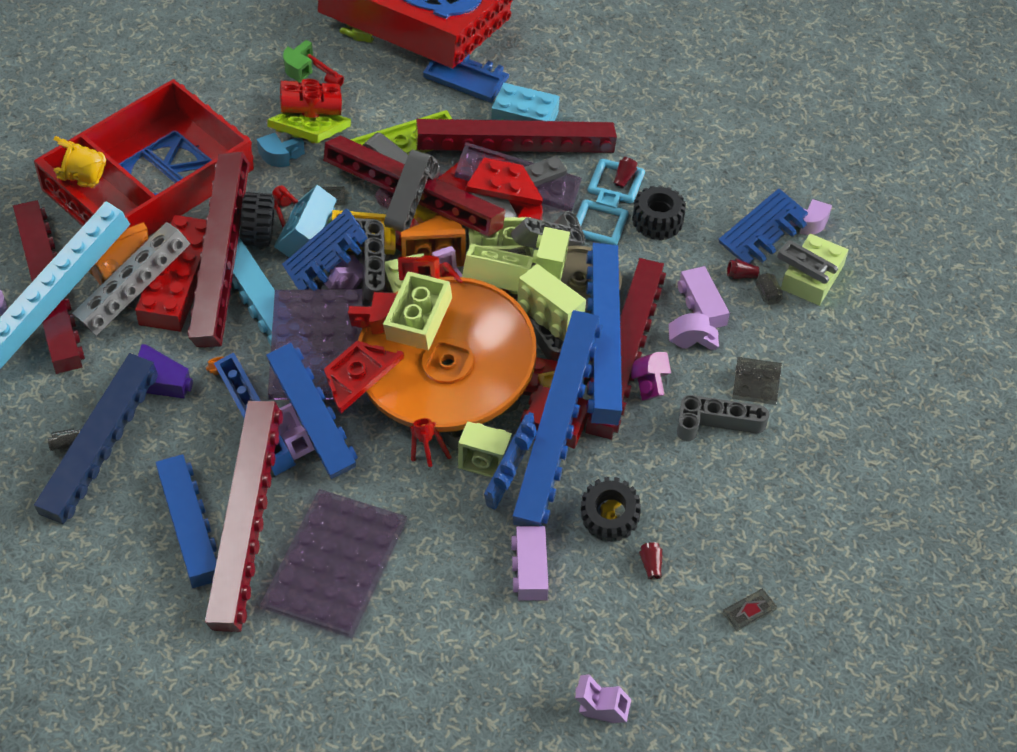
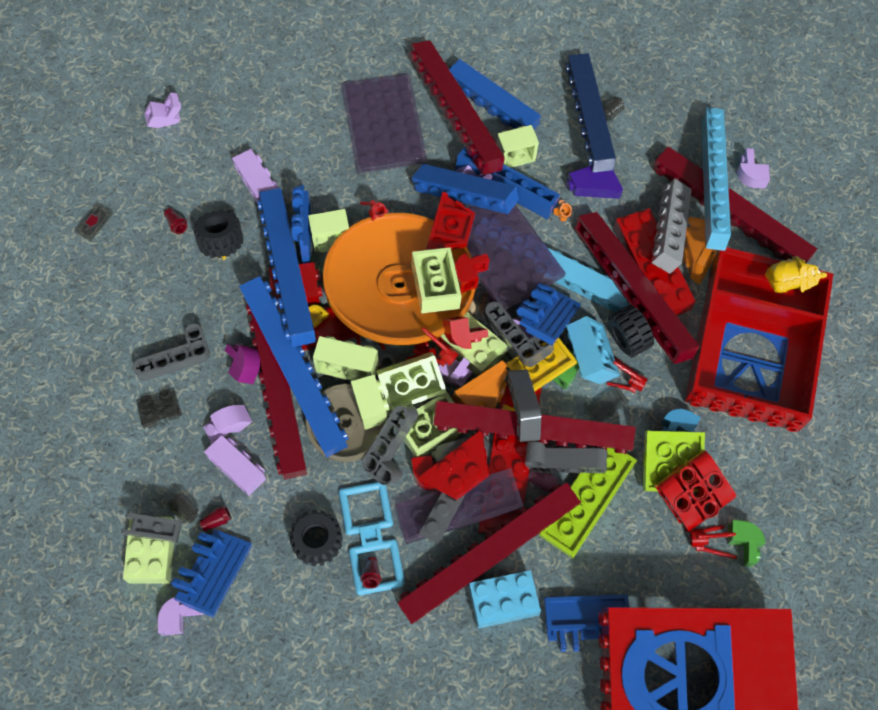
camera: 150 degrees right, 15 degrees up
(213, 438) = (518, 145): none -> yellowish green brick

